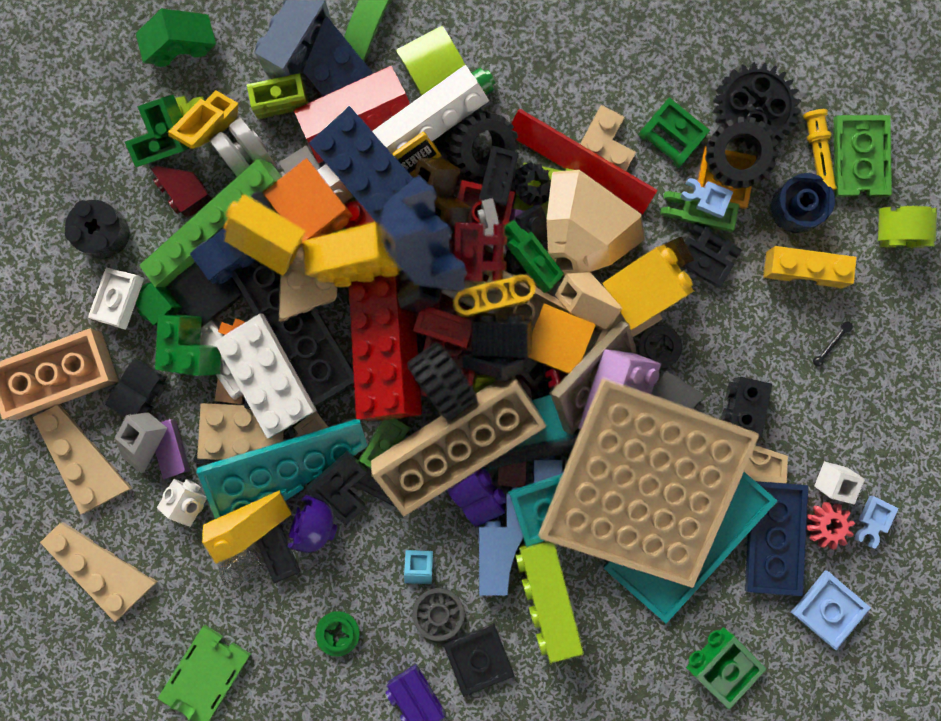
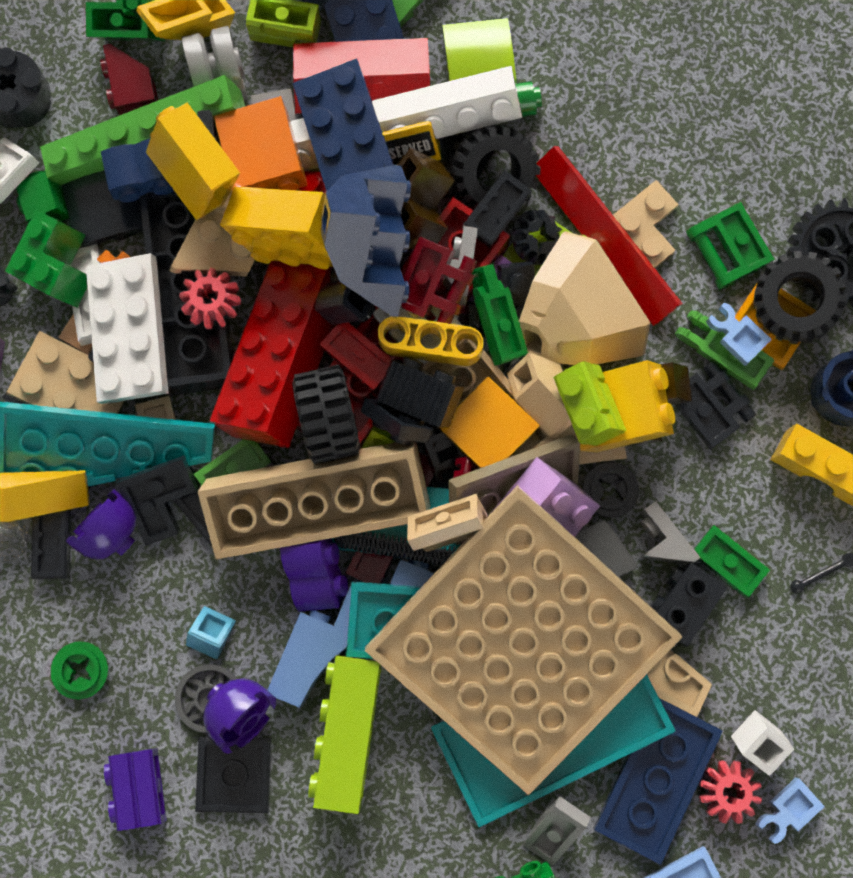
camera: 25 degrees right, 5 degrees down
(313, 339) = (200, 289): none -> coral gear
(464, 617) = (236, 712): none -> dark purple cylinder
(561, 424) = (445, 524): none -> tan panel
(626, 295) = (589, 403): none -> lime brick
(719, 367) = (673, 545): none -> light grey slope
(721, 602) = (556, 830): none -> light grey slope
(765, 363) = (730, 561): none -> green plate

